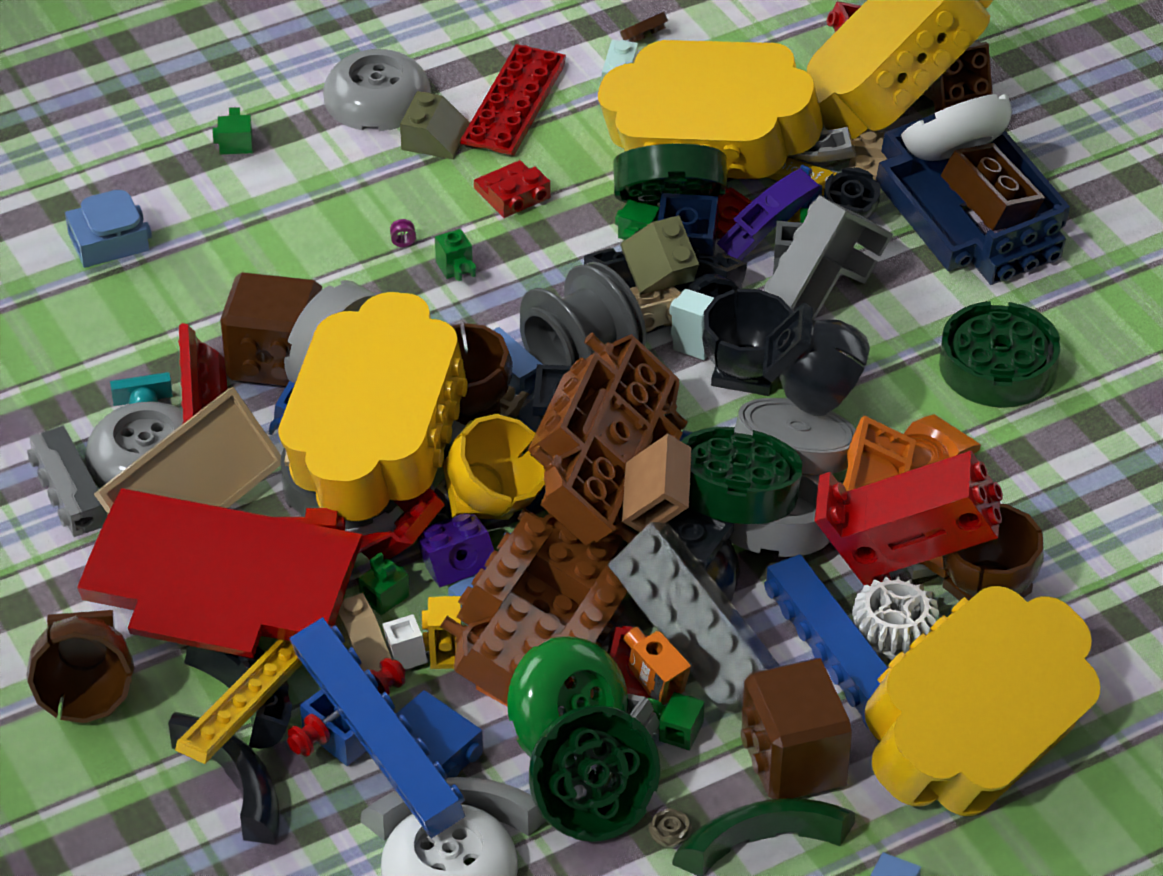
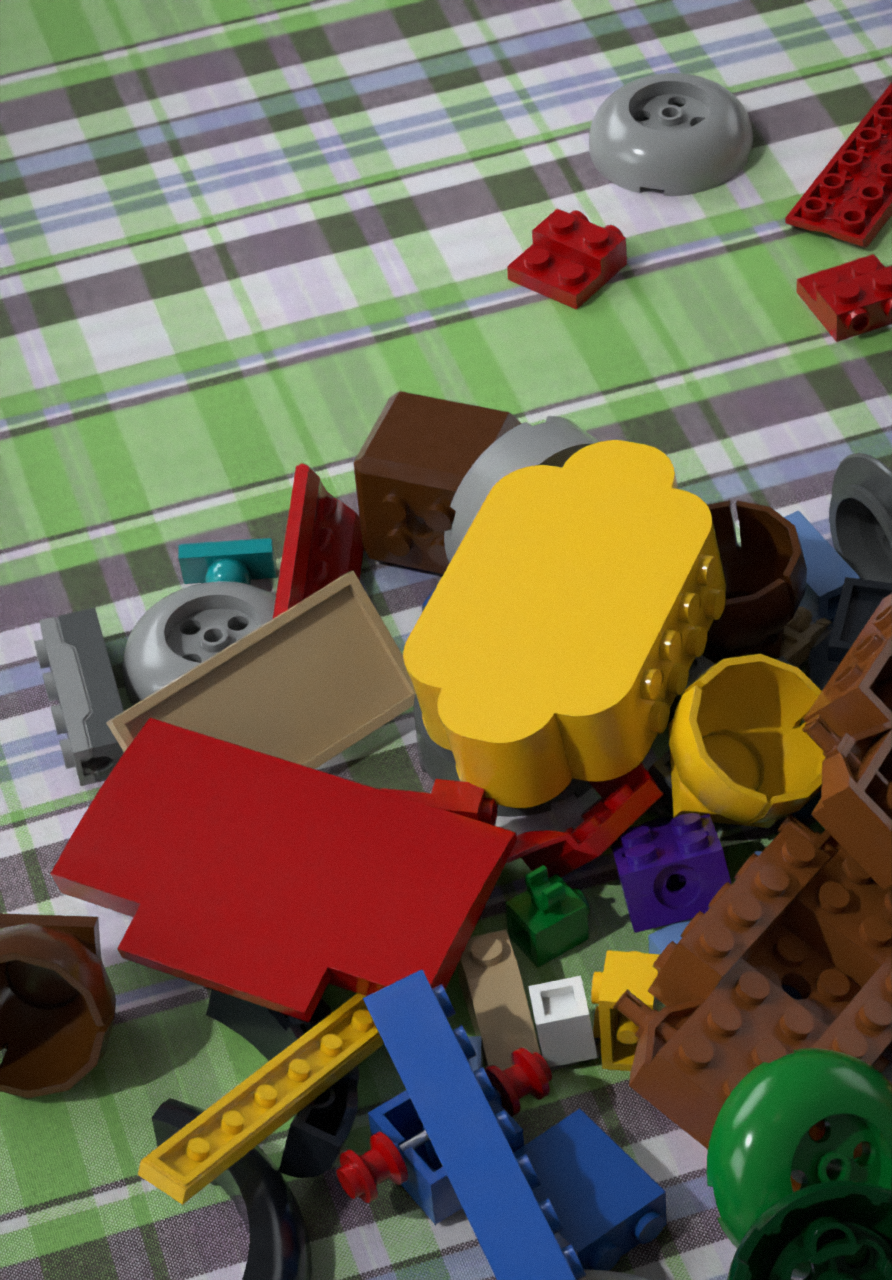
camera: 15 degrees right, 0 degrees up
(107, 228) = (228, 310): medium blue brick -> none
(234, 133) = (443, 184): green brick -> none
(325, 176) = (569, 258): none -> red plate
(402, 225) = (675, 341): magenta bush -> none
(432, 126) = (745, 194): olive slope -> none
(454, 254) = (747, 391): green brick -> none

